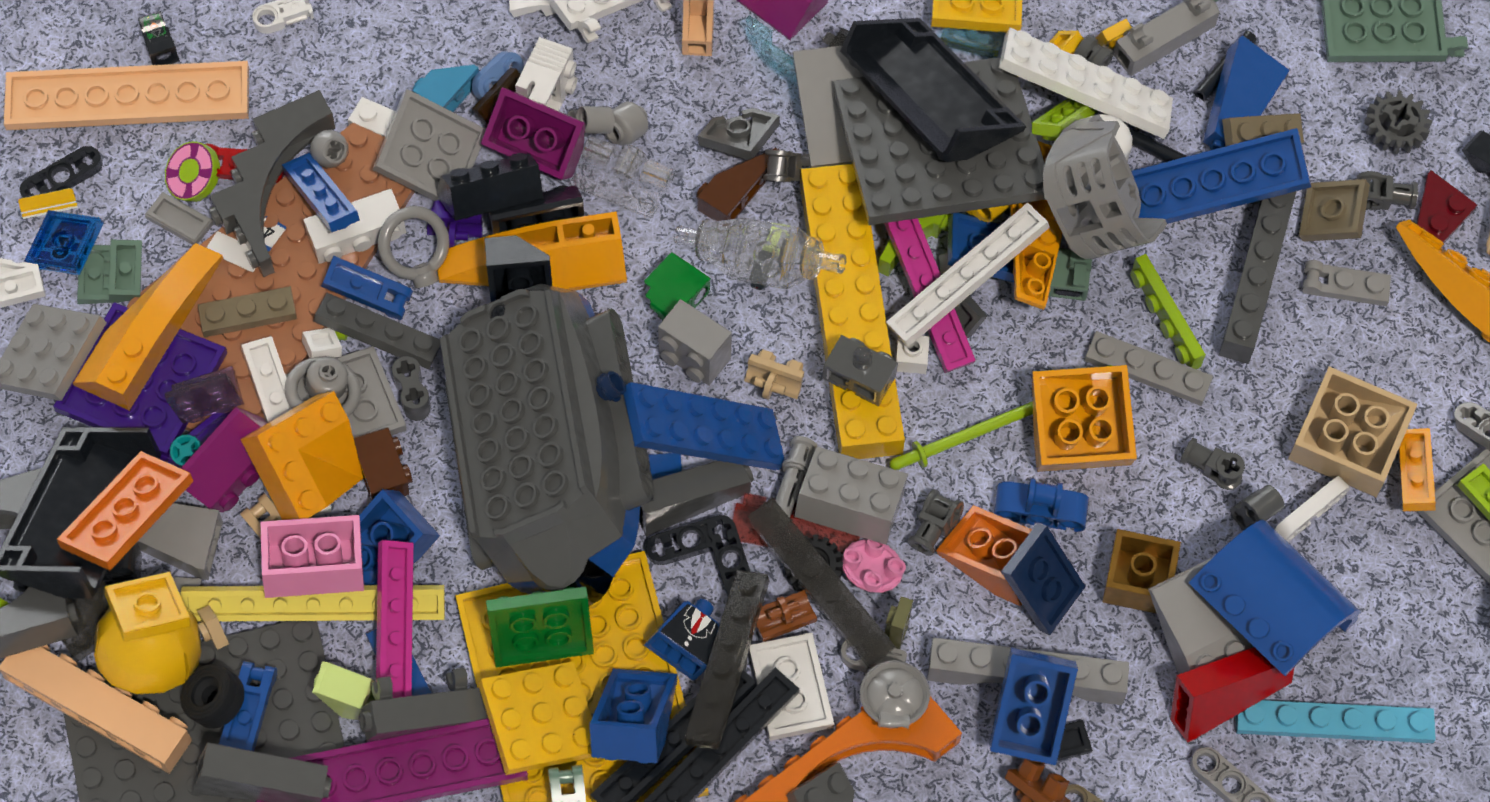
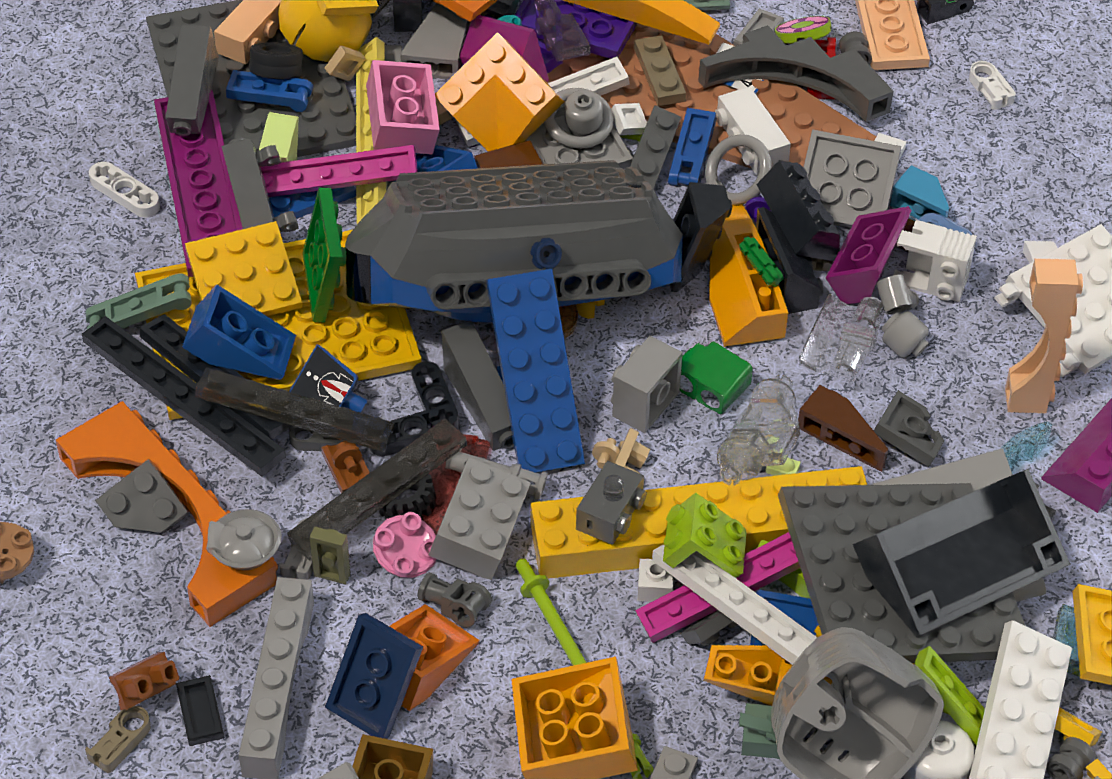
camera: 90 degrees right, 15 degrees down
(230, 127) = (856, 41): none -> dark grey wheel
(320, 192) = (777, 93): blue plate -> none
(329, 148) = (833, 107): light grey piece -> none
(555, 226) = (761, 261): none -> green axle
(785, 165) = (868, 455): flat silver connector -> none
(800, 663) = (291, 483): white plate -> none
(900, 296) = (705, 529): none -> lime bracket
(1033, 706) = (222, 657): blue brick -> none
(1042, 504) = (472, 697): blue beam -> none

